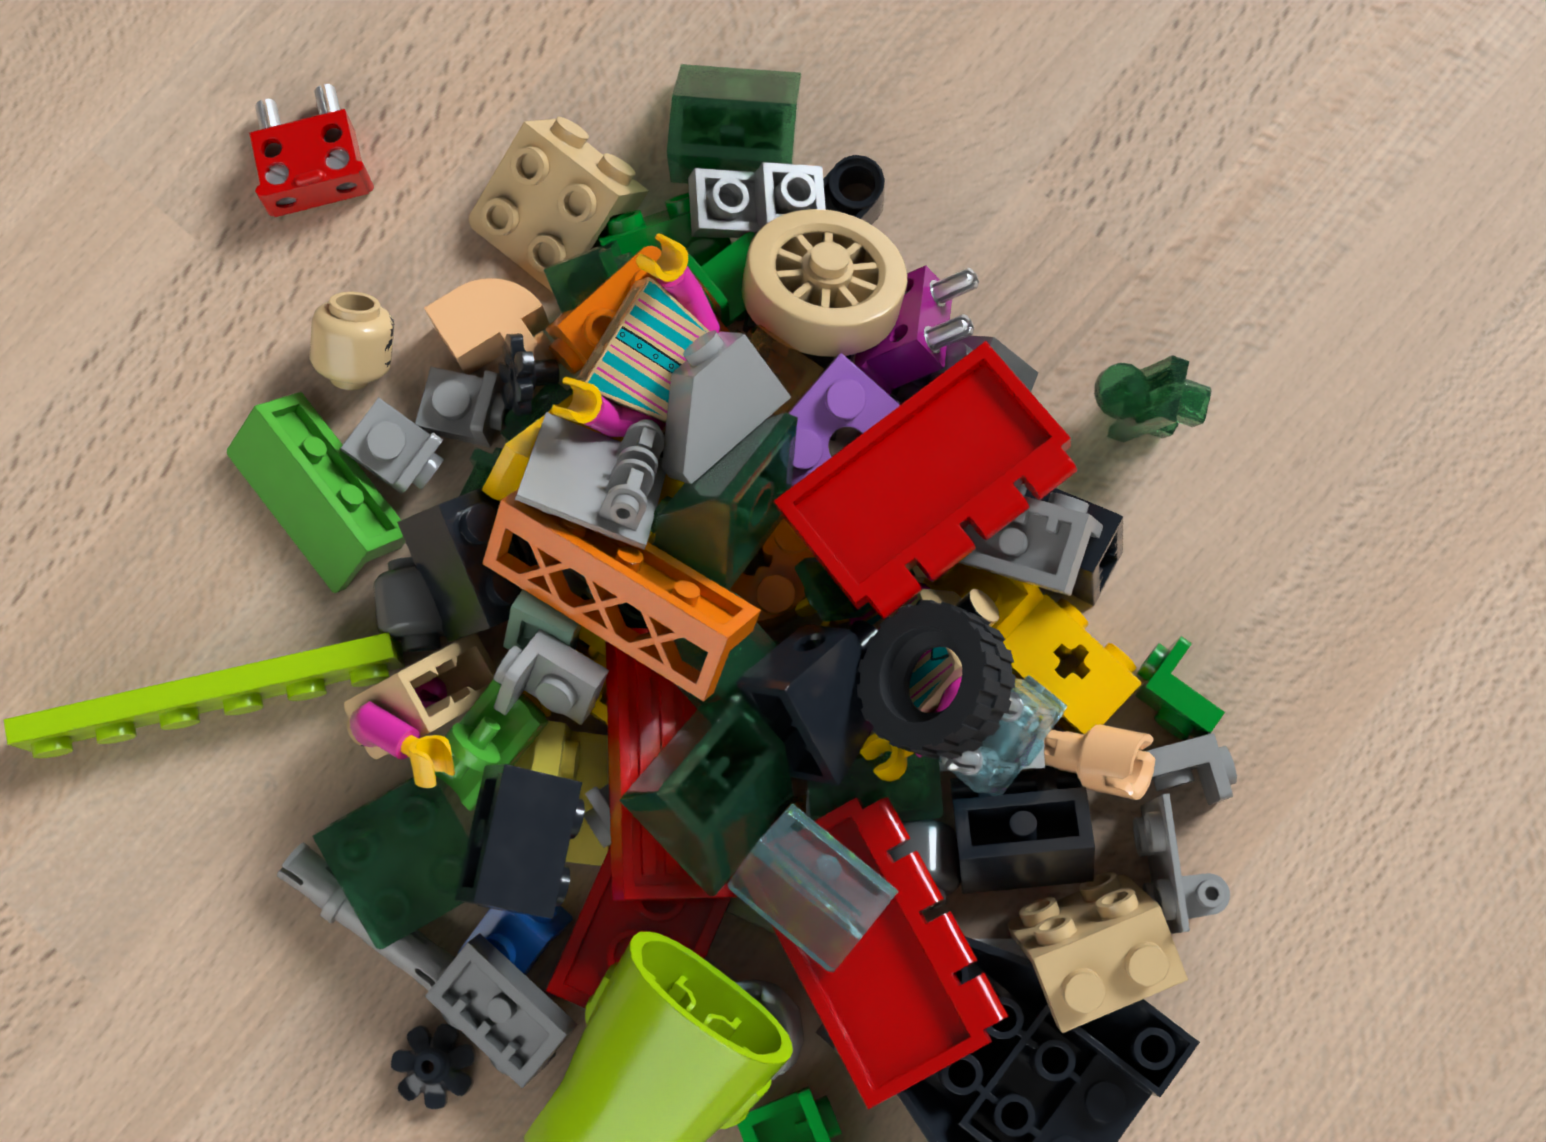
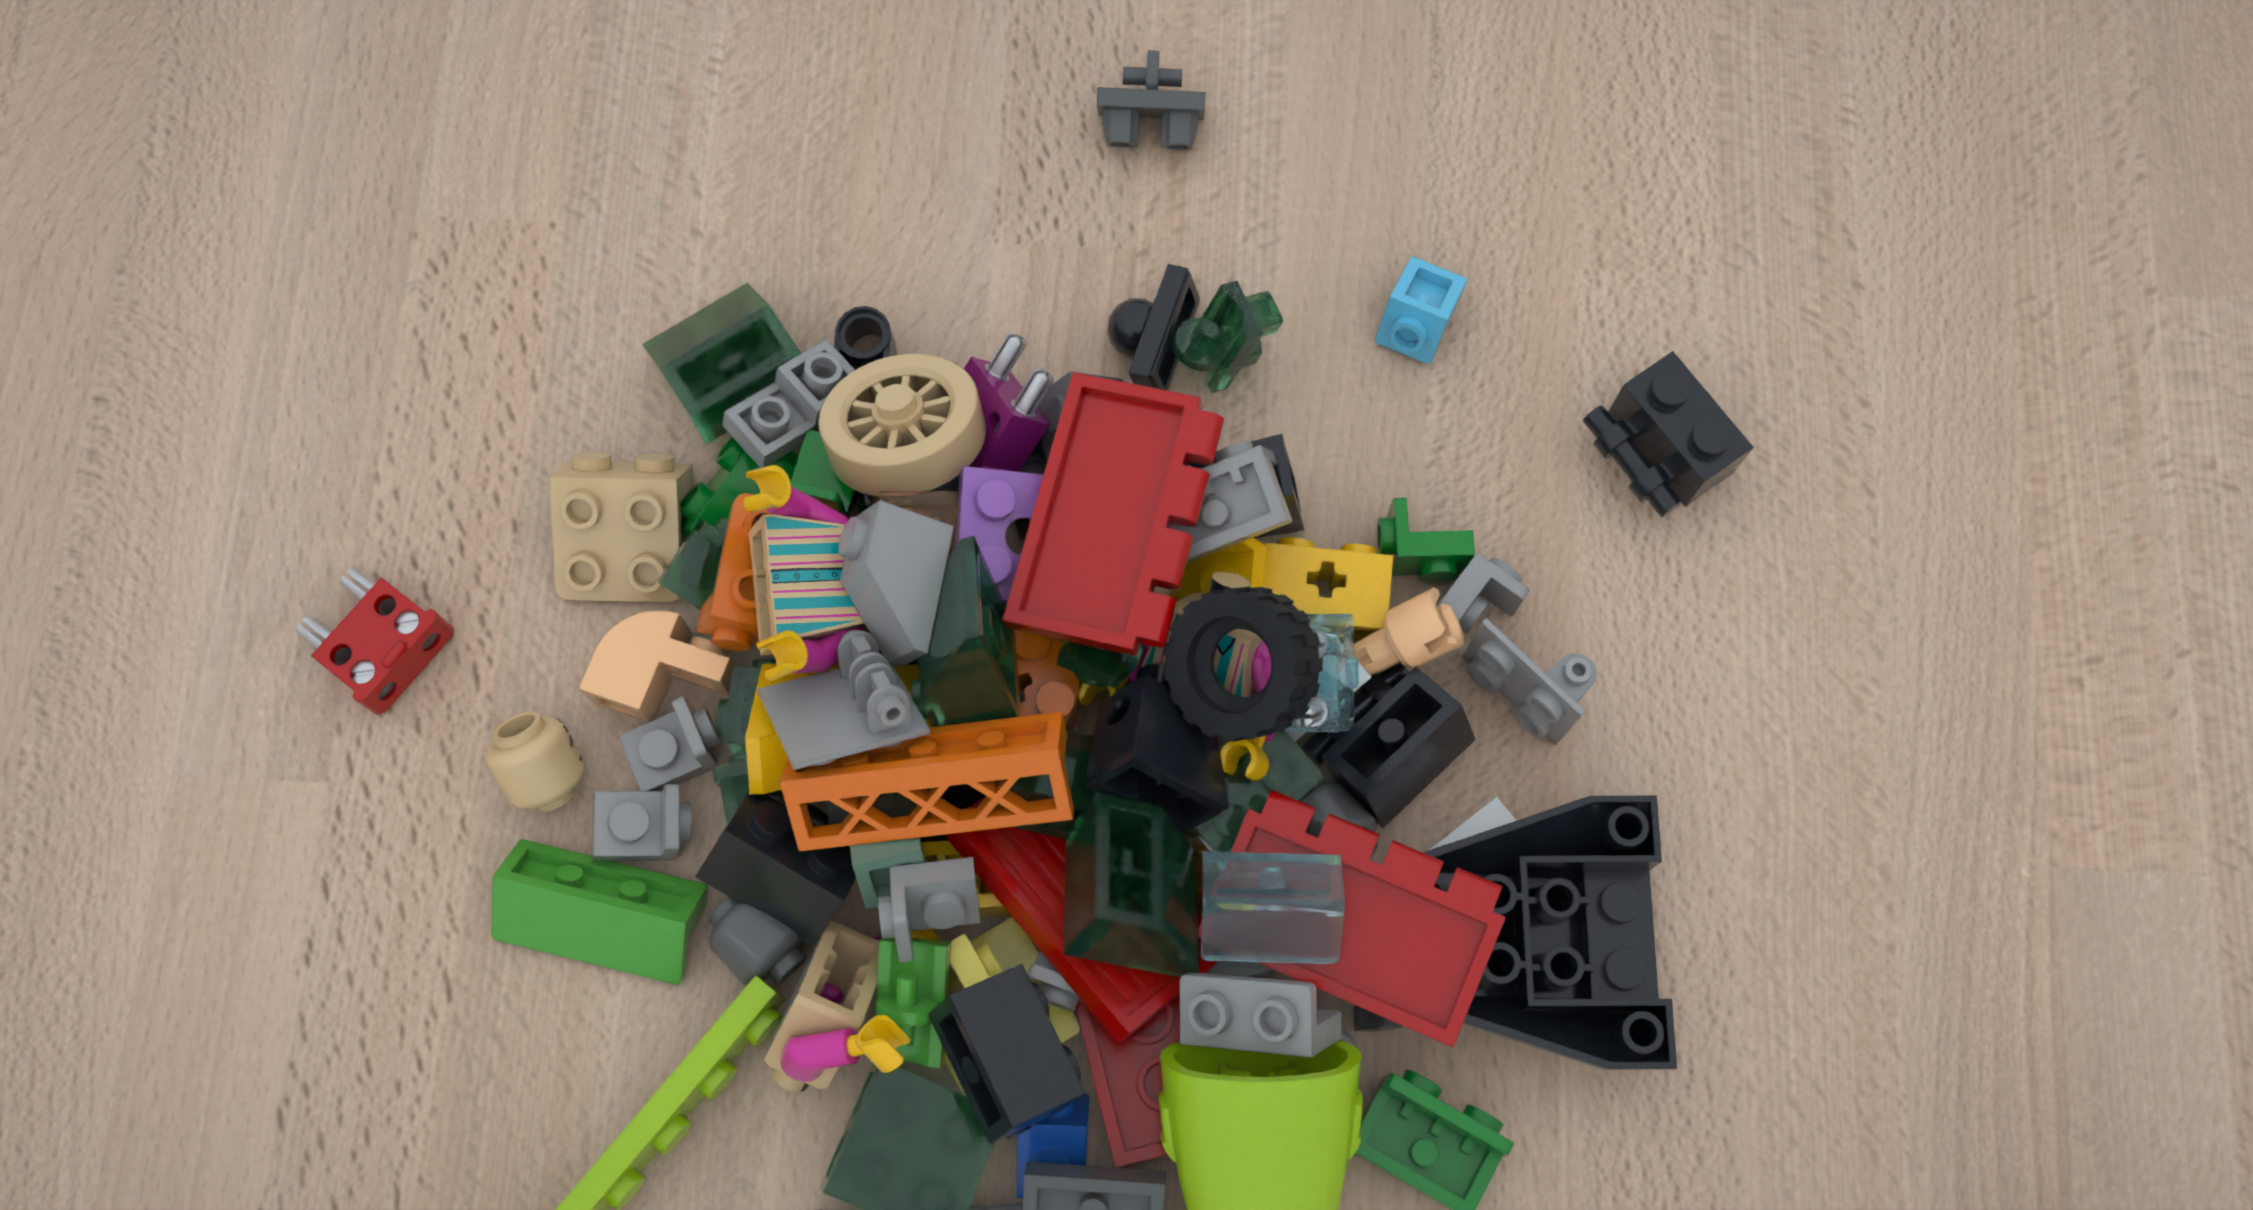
camera: 40 degrees left, 5 degrees down
(522, 374) = (707, 680): black plant -> none
(732, 964) = (1255, 1015): none -> light grey bracket
(1091, 344) = (1147, 328): none -> black tile
(1098, 949) = (1523, 784): tan bracket -> none
(1219, 144) = (1177, 108): none -> dark grey hips
(1335, 495) = (1420, 309): none -> medium azure bracket
(1470, 757) = (1668, 436): none -> black brick

